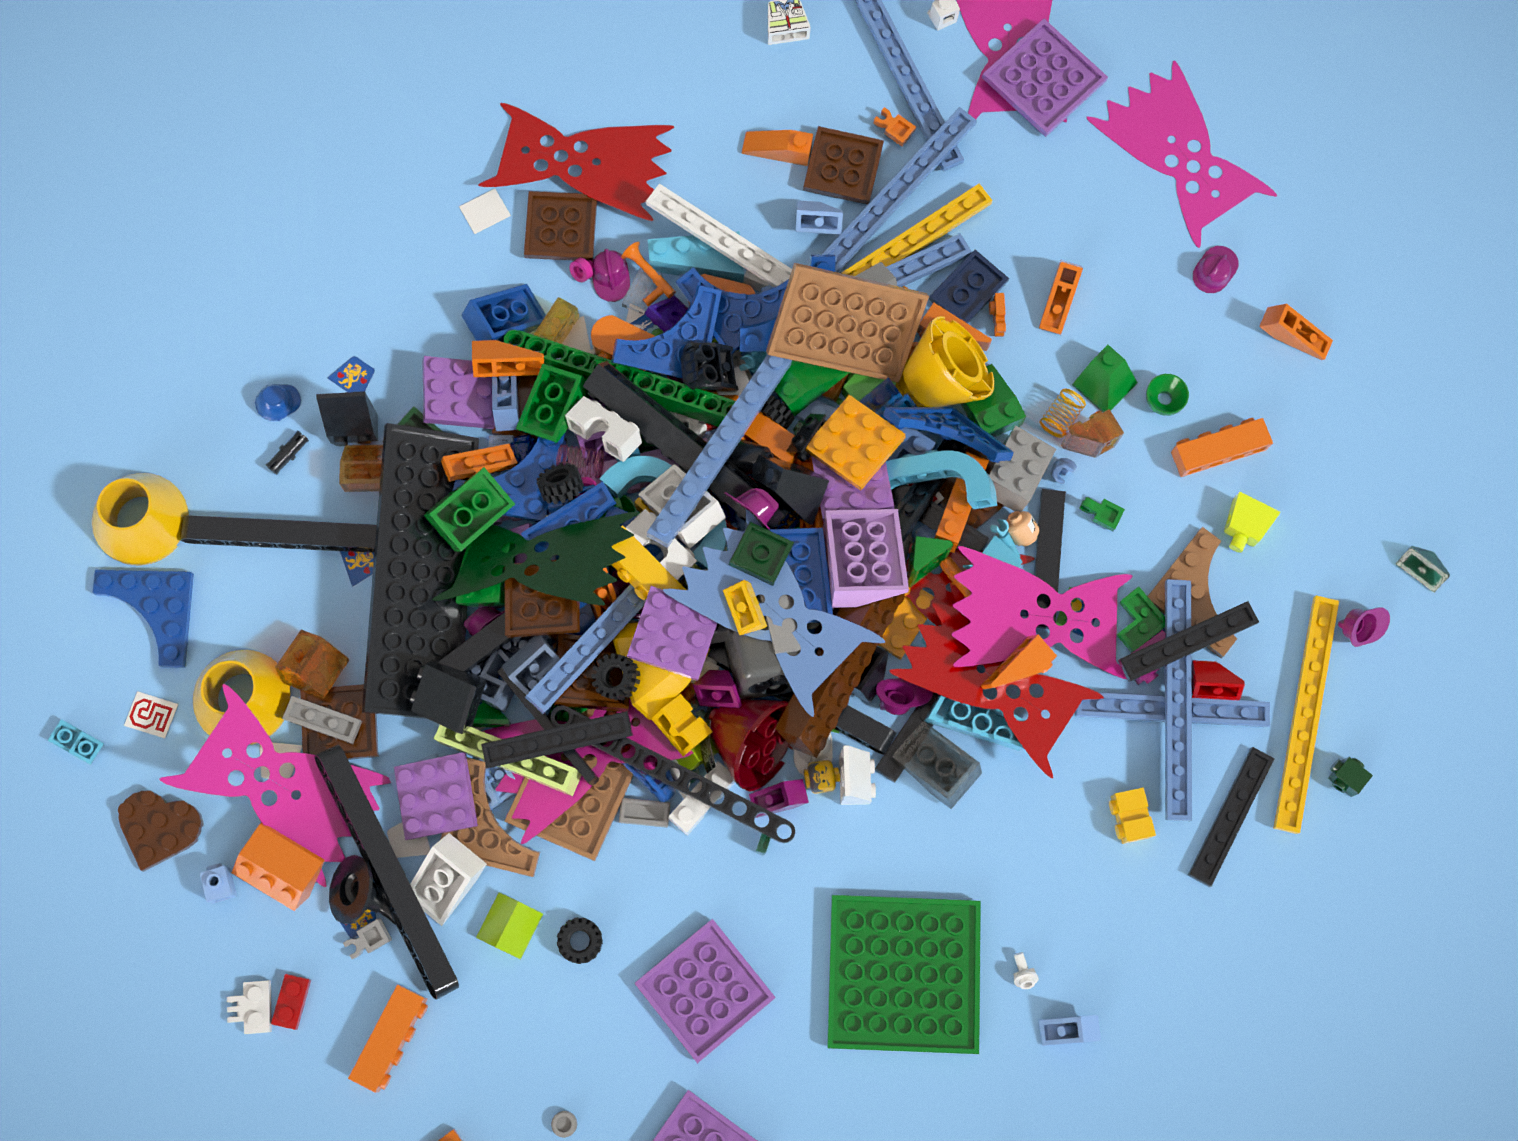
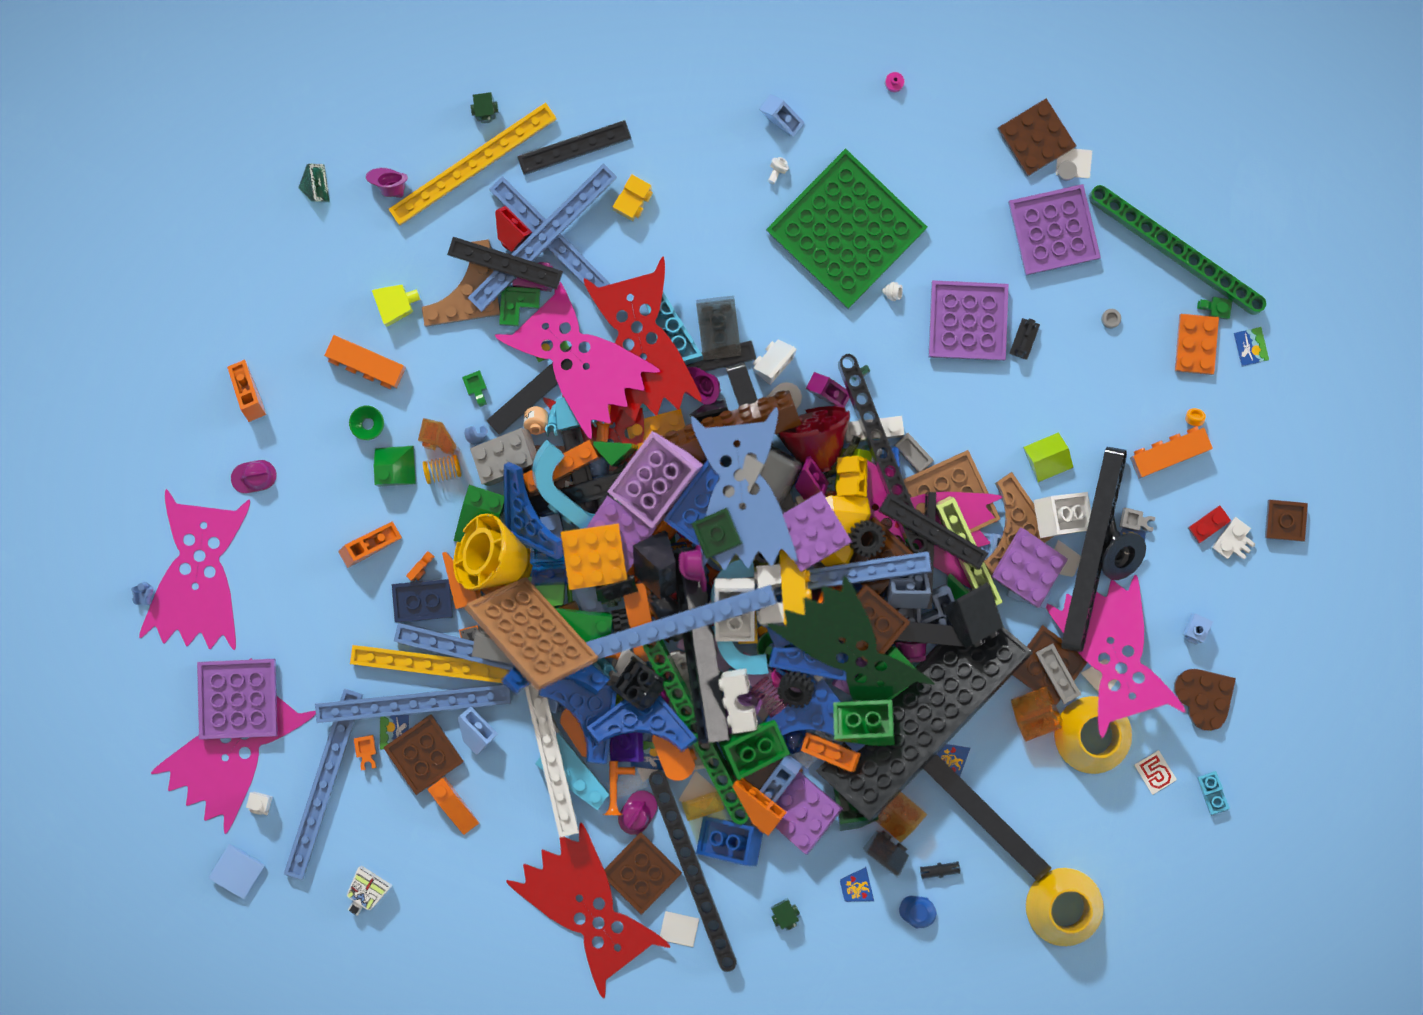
camera: 130 degrees left, 10 degrees up
(162, 601) = (1093, 840): blue plate -> none
(213, 1074) = (1286, 520): none -> reddish brown plate
(278, 866) = (1155, 606): orange slope -> none
(393, 1097) = (1195, 417): none -> light orange tile
(398, 296) = (785, 914): none -> dark green brick
(508, 258) = (685, 862): none -> black beam
(565, 934) = (1023, 403): black tyre -> none
(581, 269) = (653, 830): dark pink tile -> none
(633, 1023) = (1024, 338): none -> black hinge
(744, 607) = (757, 507): yellow slope -> none
(803, 952) = (893, 291): none -> white plate
(821, 776) = (792, 380): yellow head -> none
(889, 164) = (392, 727): none -> sticker
(1027, 659) = (615, 336): orange slope -> none
(1208, 93) = (142, 593): none -> medium blue arm

